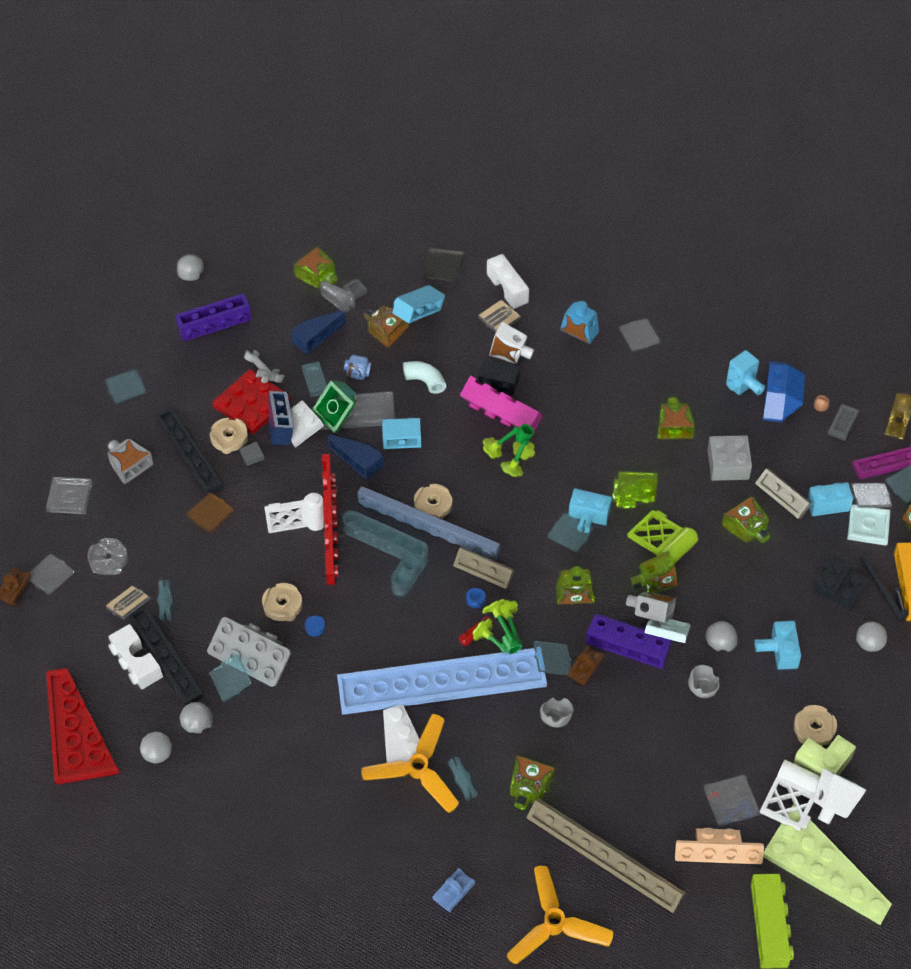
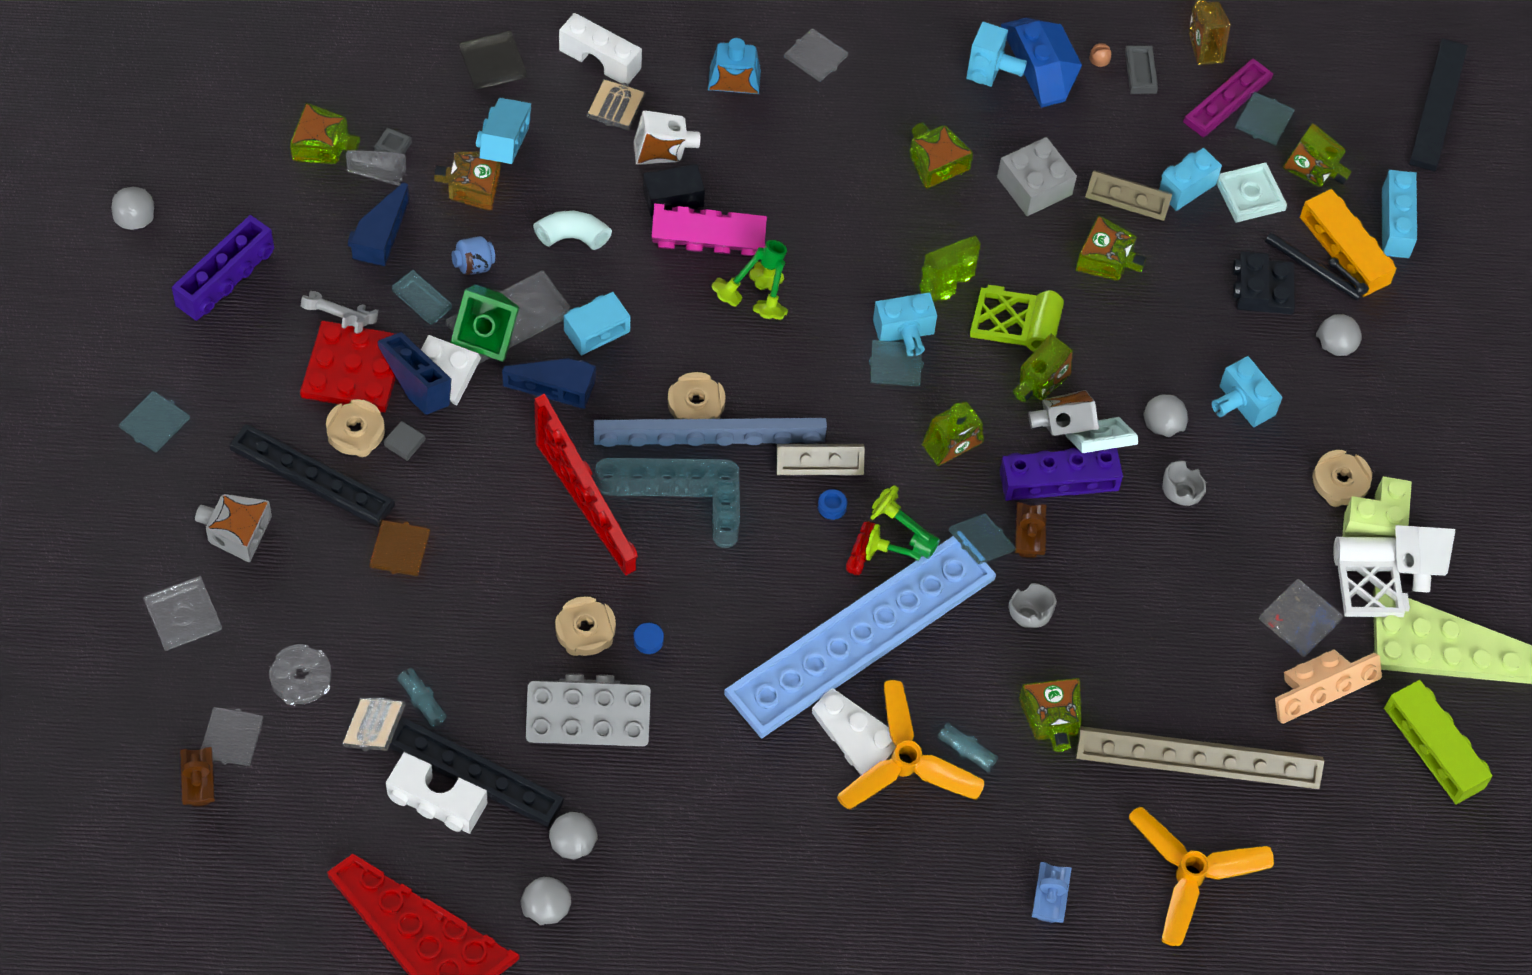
camera: 35 degrees left, 5 degrees up
(230, 678) = (585, 760): clear light blue piece -> none
(310, 512) = (546, 490): white piece -> none
(871, 495) = (1234, 152): clear piece -> none

